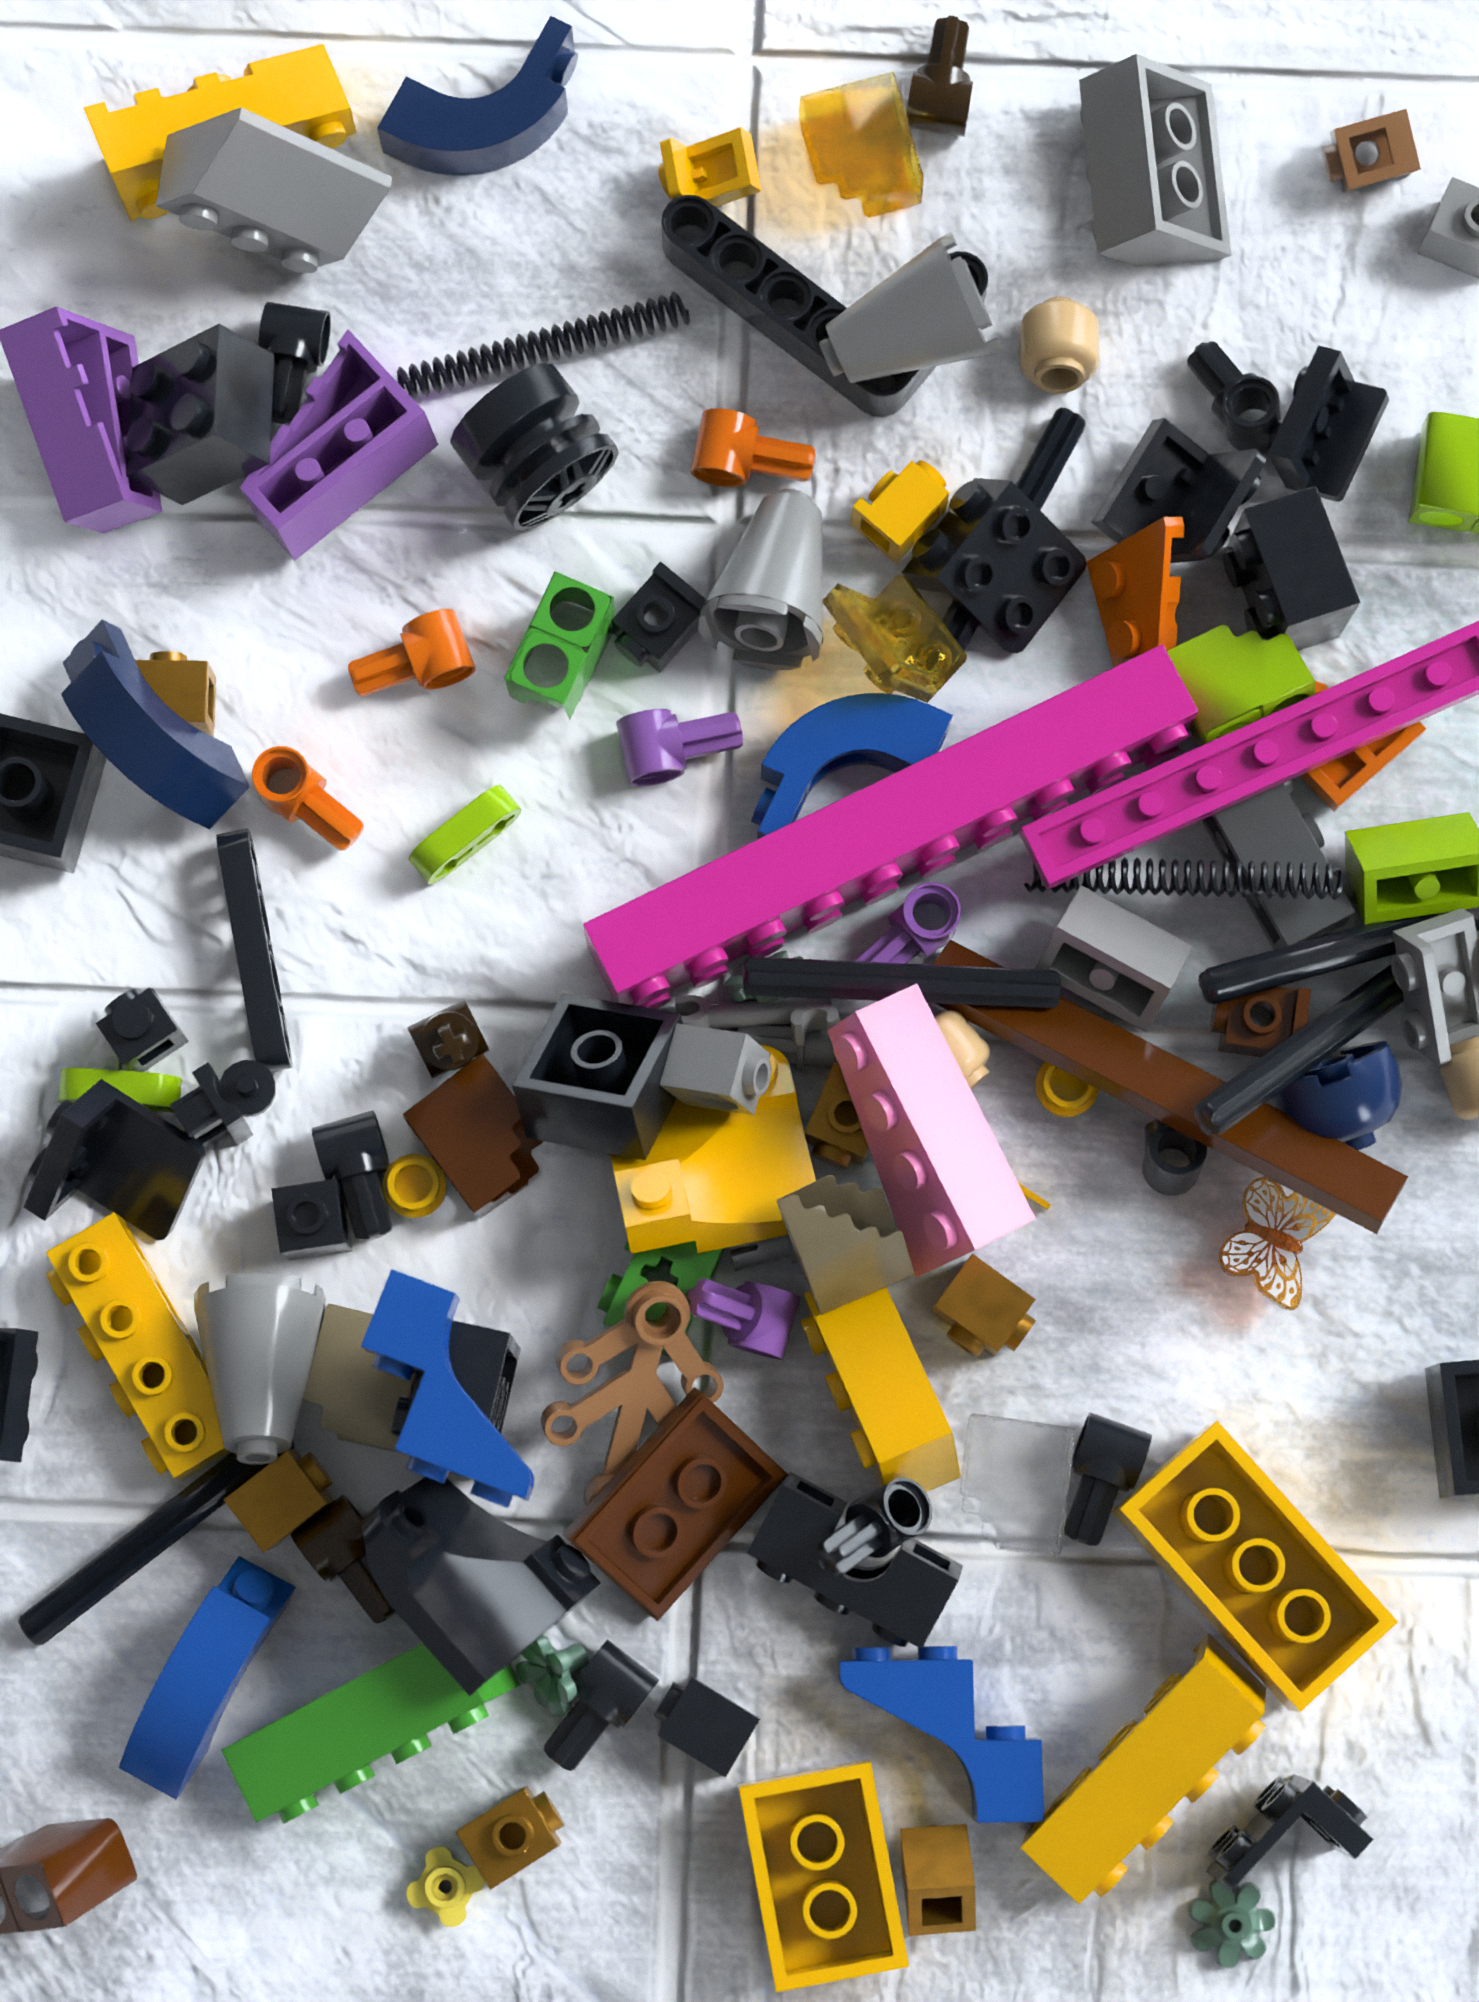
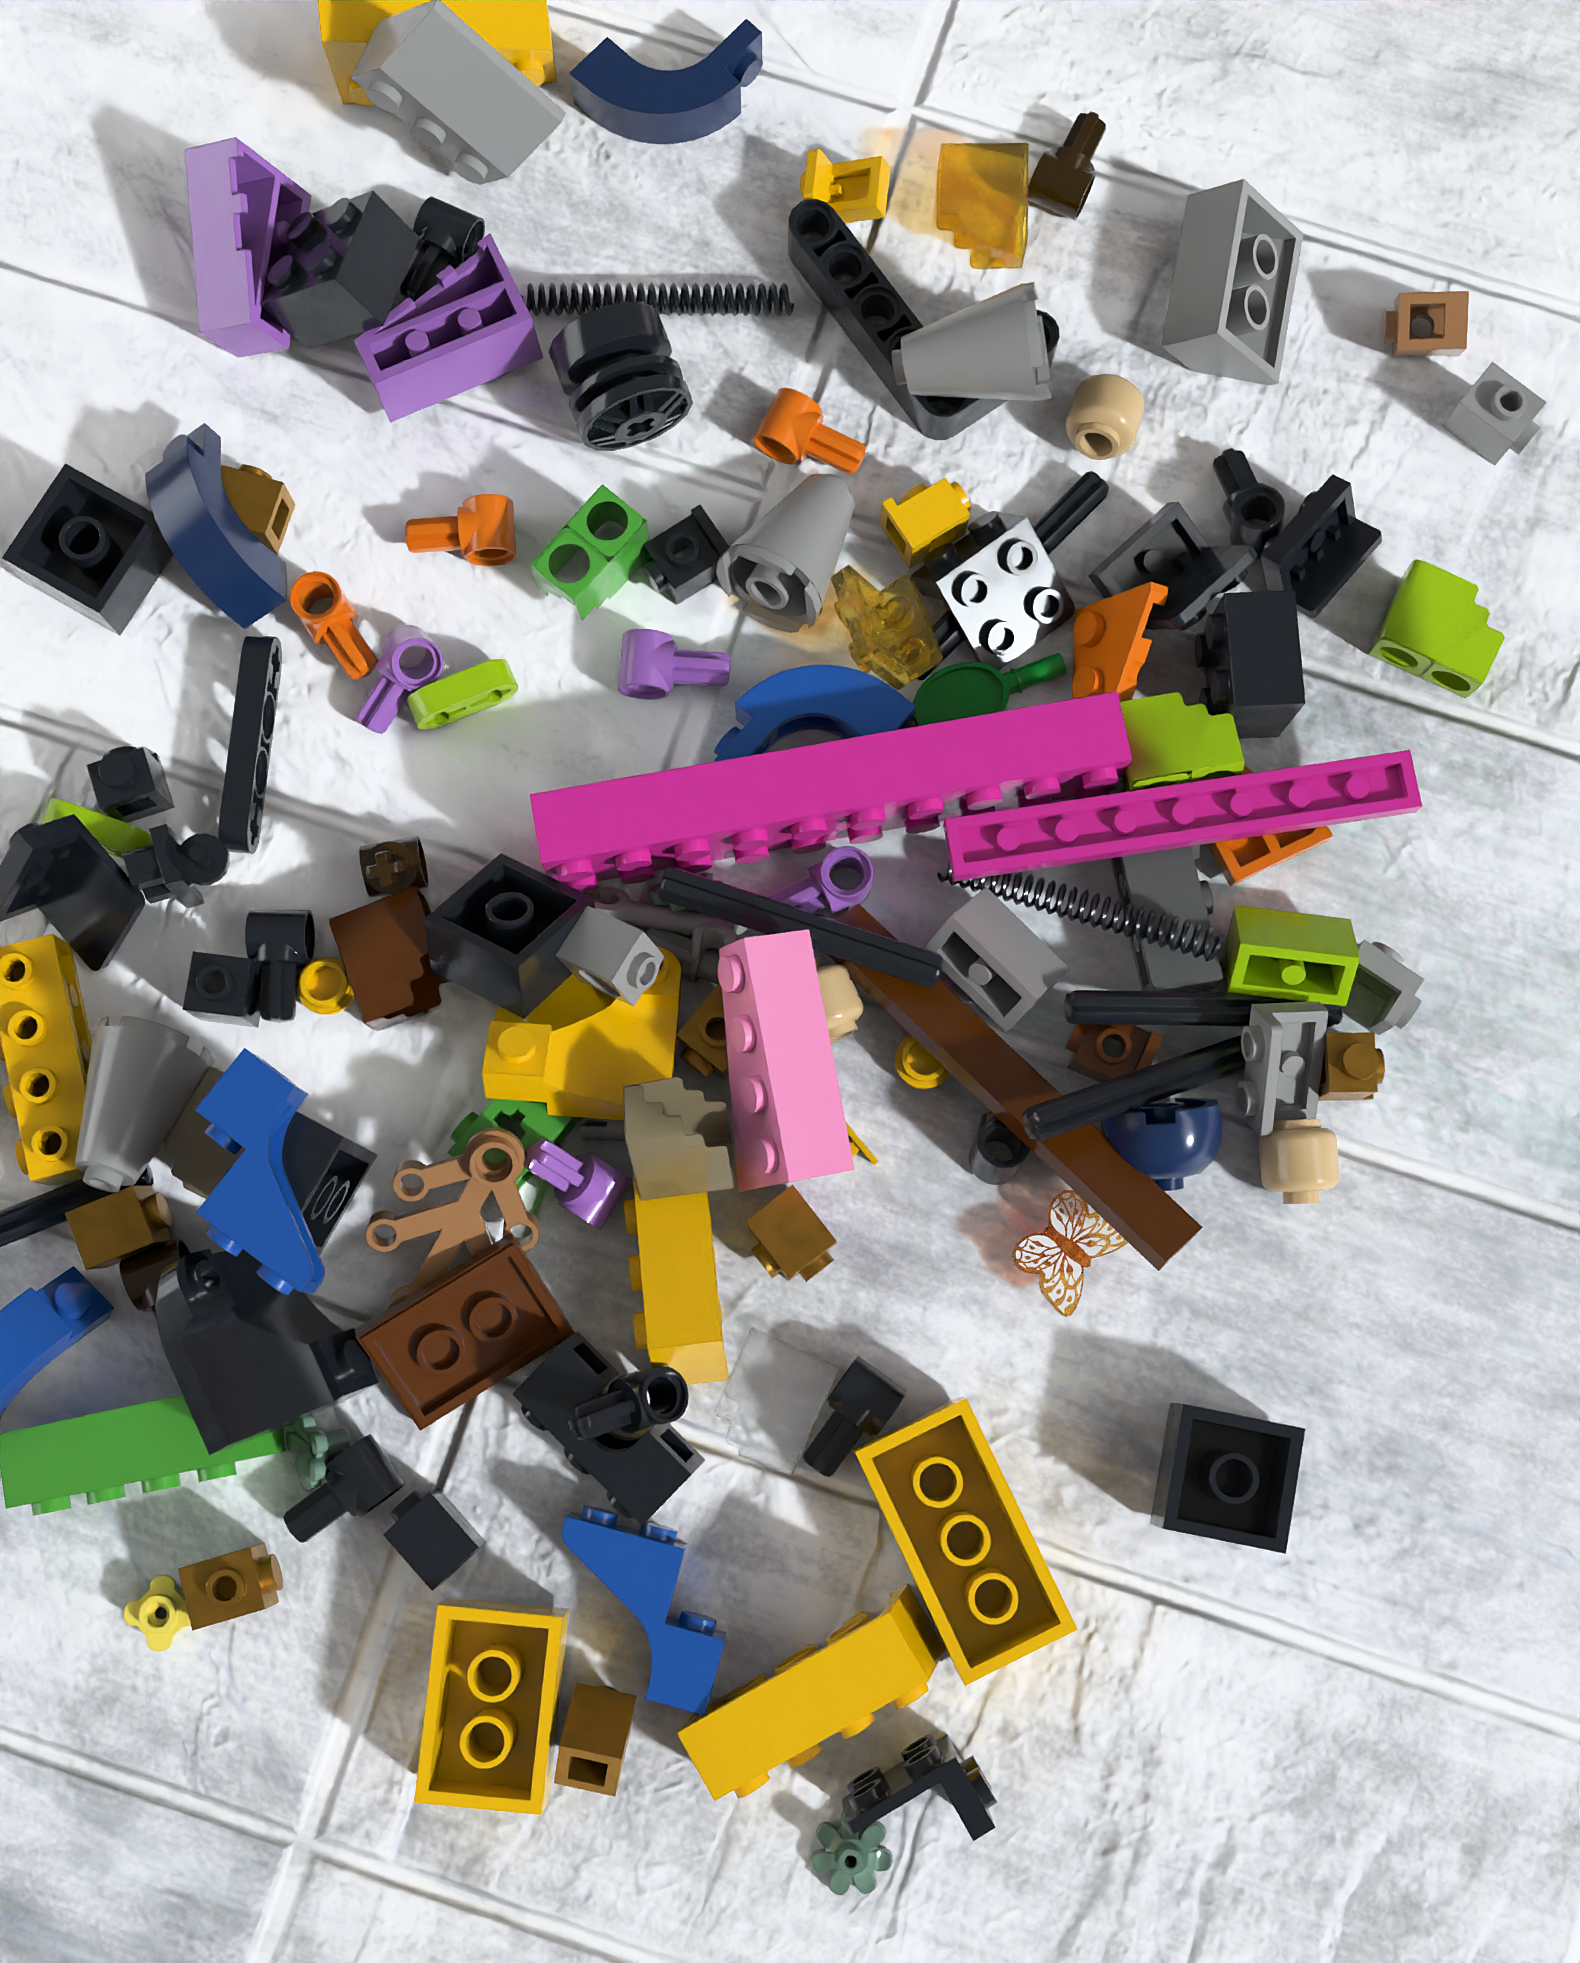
camera: 15 degrees right, 0 degrees up
(390, 838) = (397, 681): none -> medium lavender axle
(1008, 679) = (978, 688): none -> green piece

